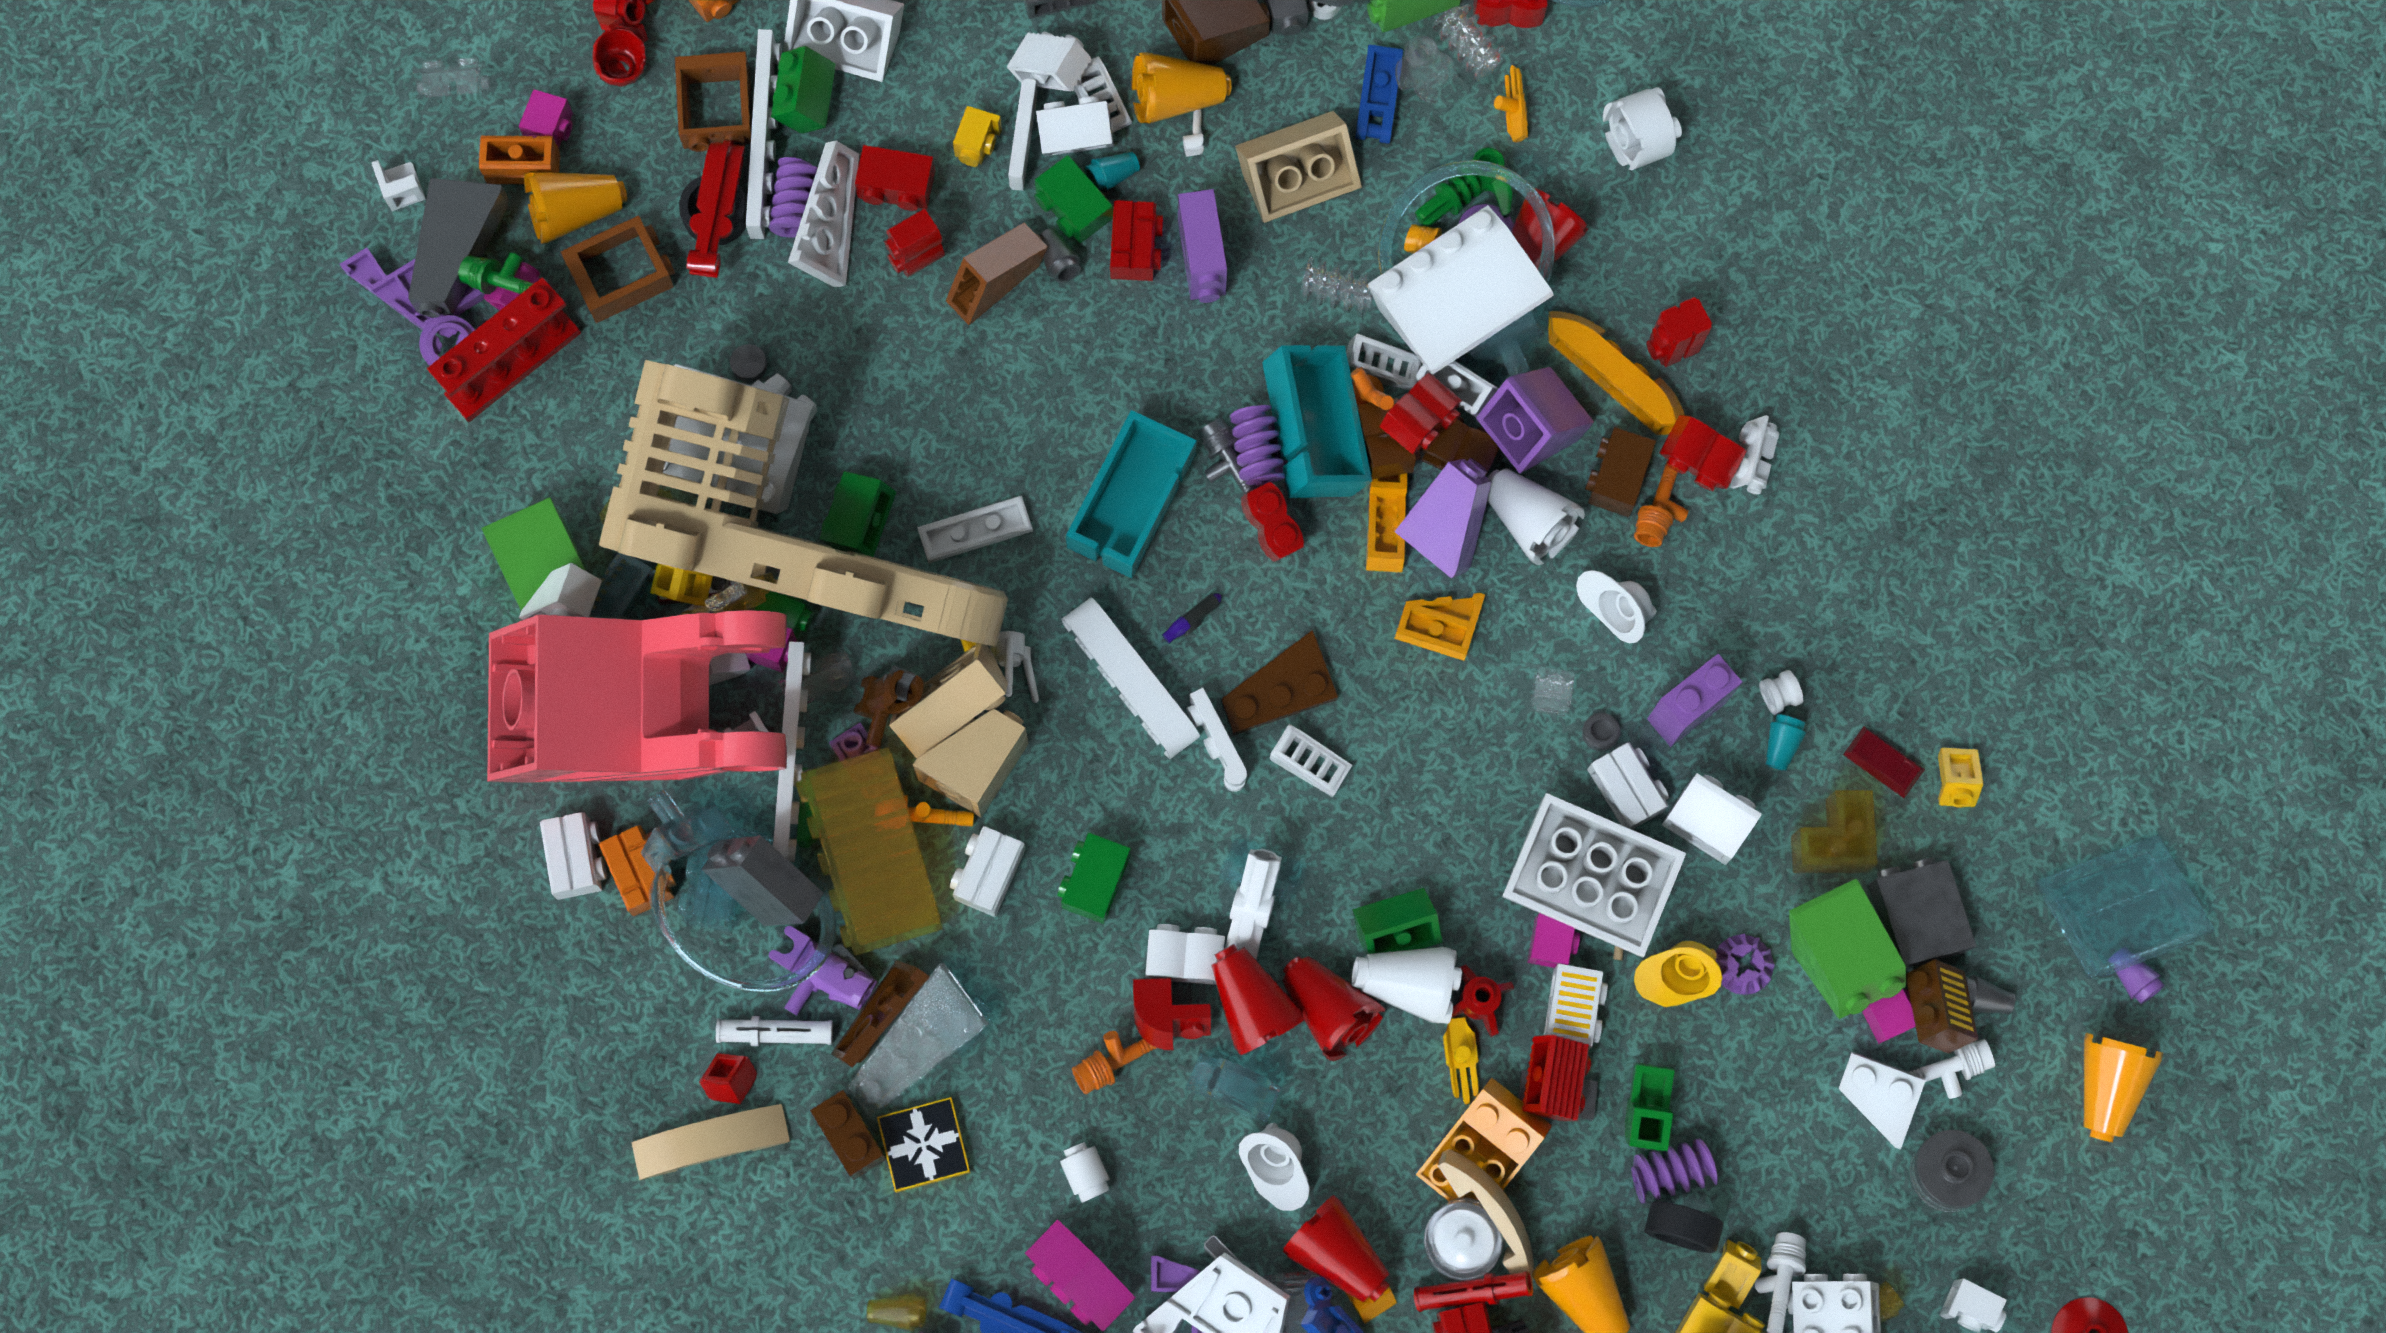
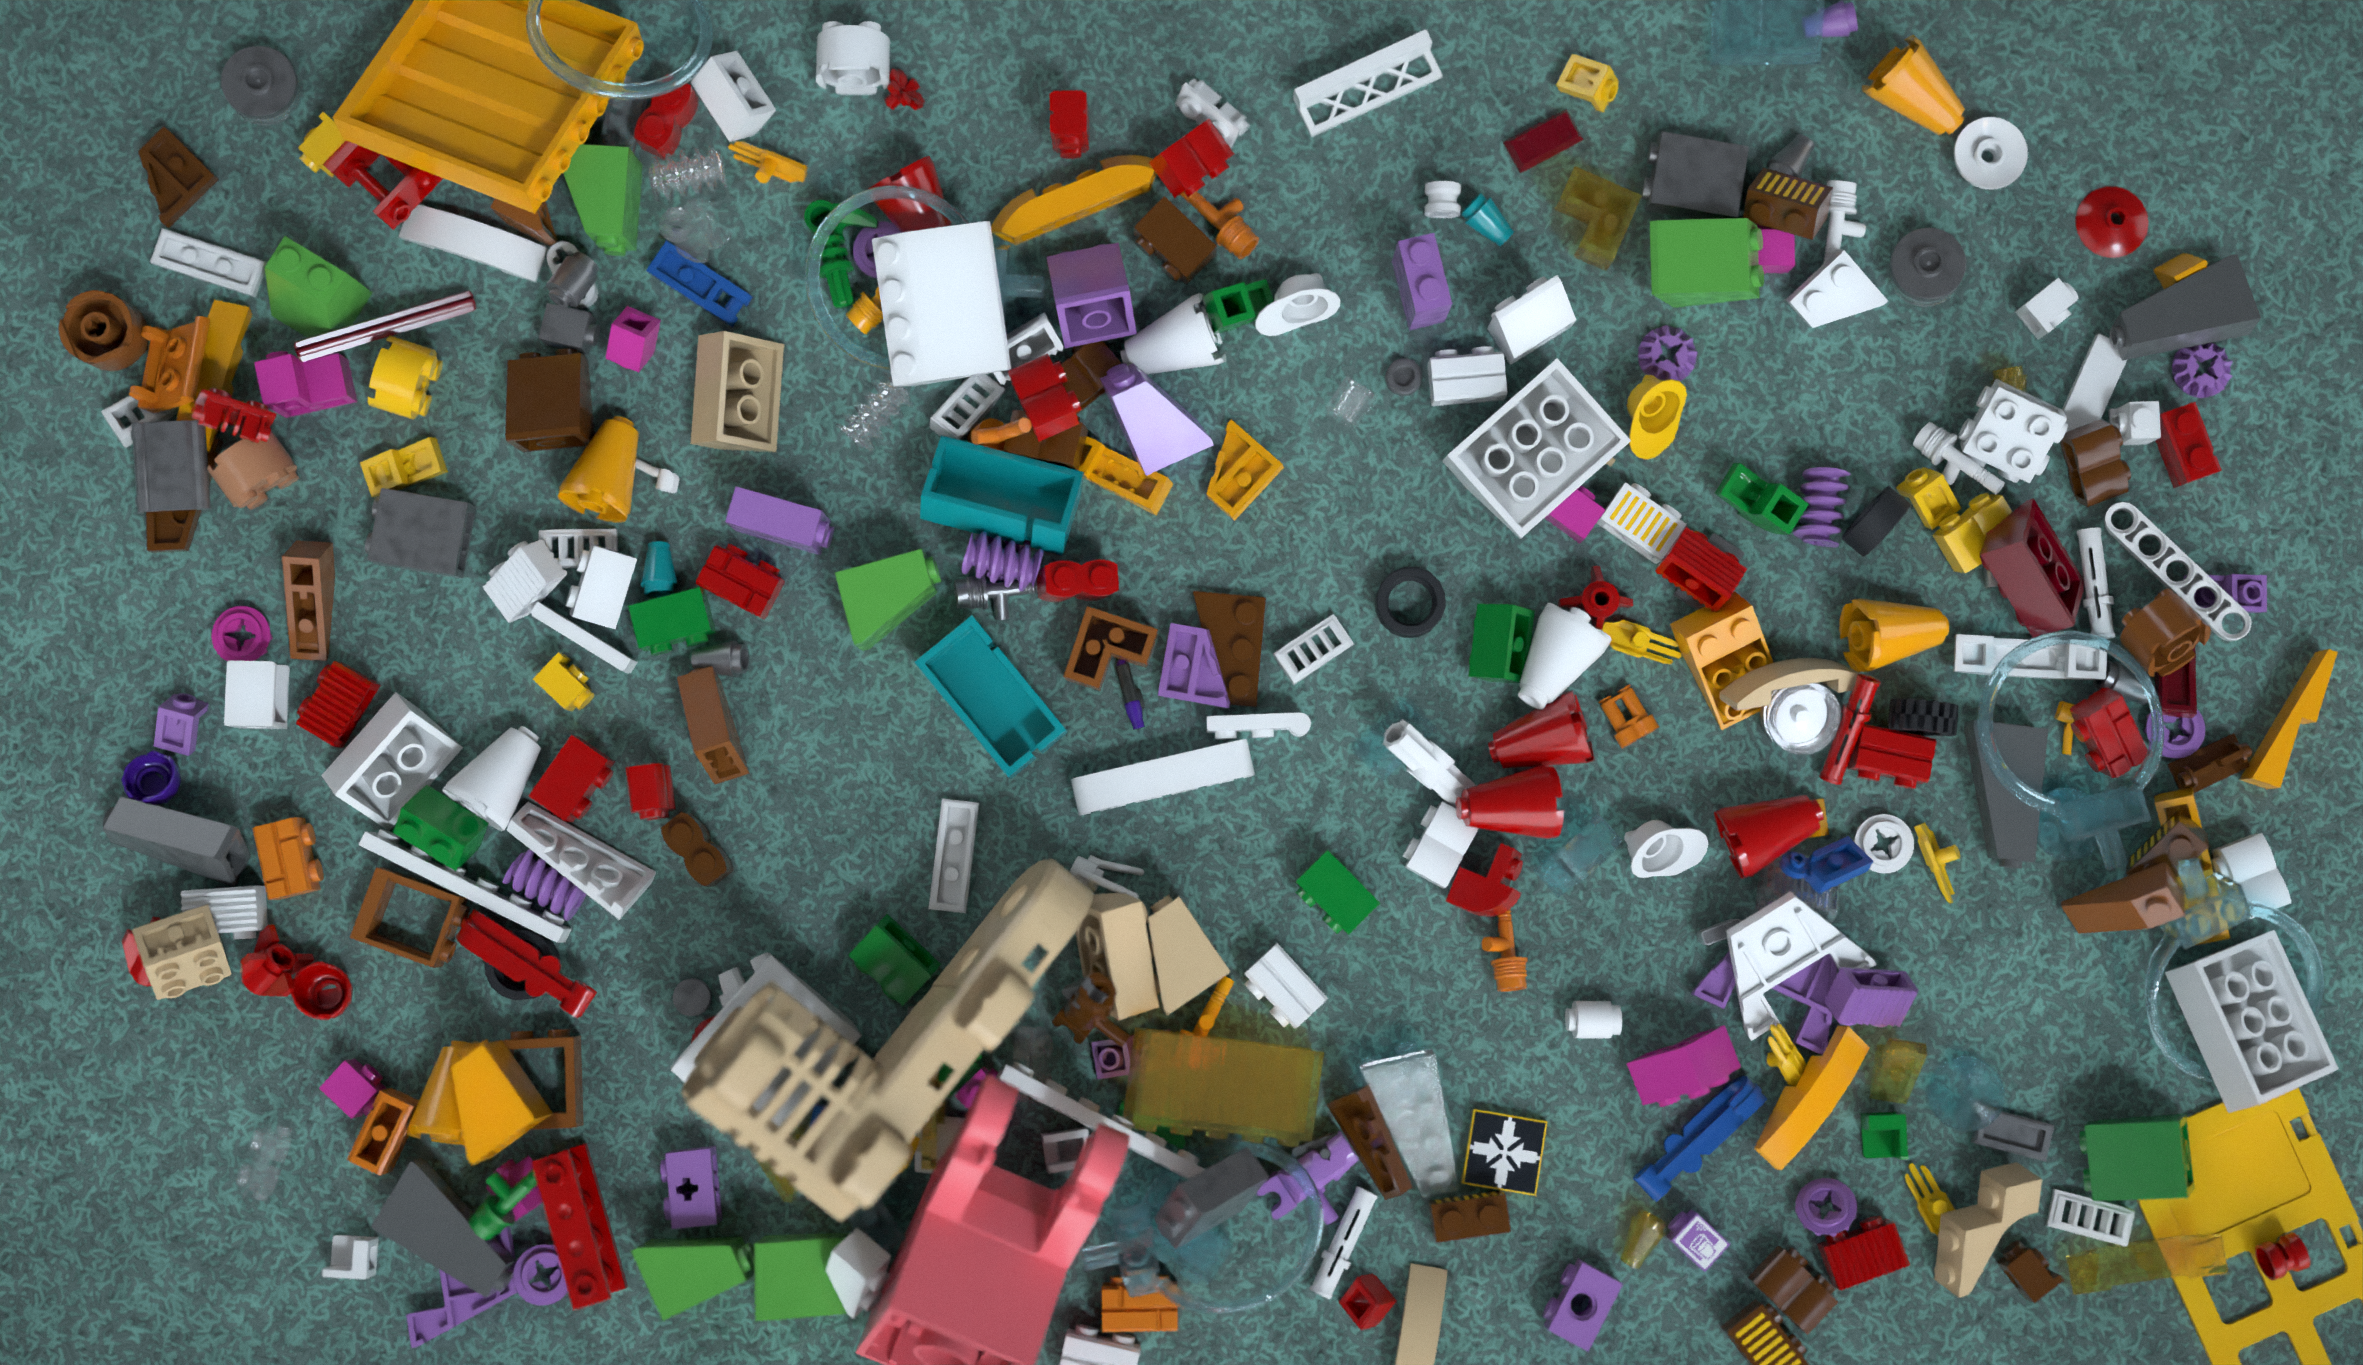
camera: 60 degrees left, 10 degrees up
(501, 459) = (692, 1269): none -> bright green slope
(583, 226) = (494, 1099): none -> light orange slope
(598, 436) = (705, 1204): none -> medium lavender brick
(787, 1284) = (1581, 1326): none -> medium lavender brick
(868, 116) = (496, 777): none -> white cone
(875, 313) = (702, 858): none -> reddish brown brick
(1179, 362) = (885, 594): none -> bright green slope
(1226, 565) = (1106, 637): none -> dark orange brick
(1242, 659) = (1192, 668): none -> medium lavender wing
(1303, 58) = (632, 339): none -> dark pink brick
(1379, 1091) = (1631, 730): none -> orange piece
(1403, 801) = (1420, 576): none -> black tyre
(1556, 47) = (733, 96): none -> white brick
(1588, 548) = (1236, 305): none -> green brick
(1635, 185) = (903, 91): none -> red plant
(1862, 569) = (1363, 70): none -> white fence
(2110, 1180) = (2004, 143): none -> white dish

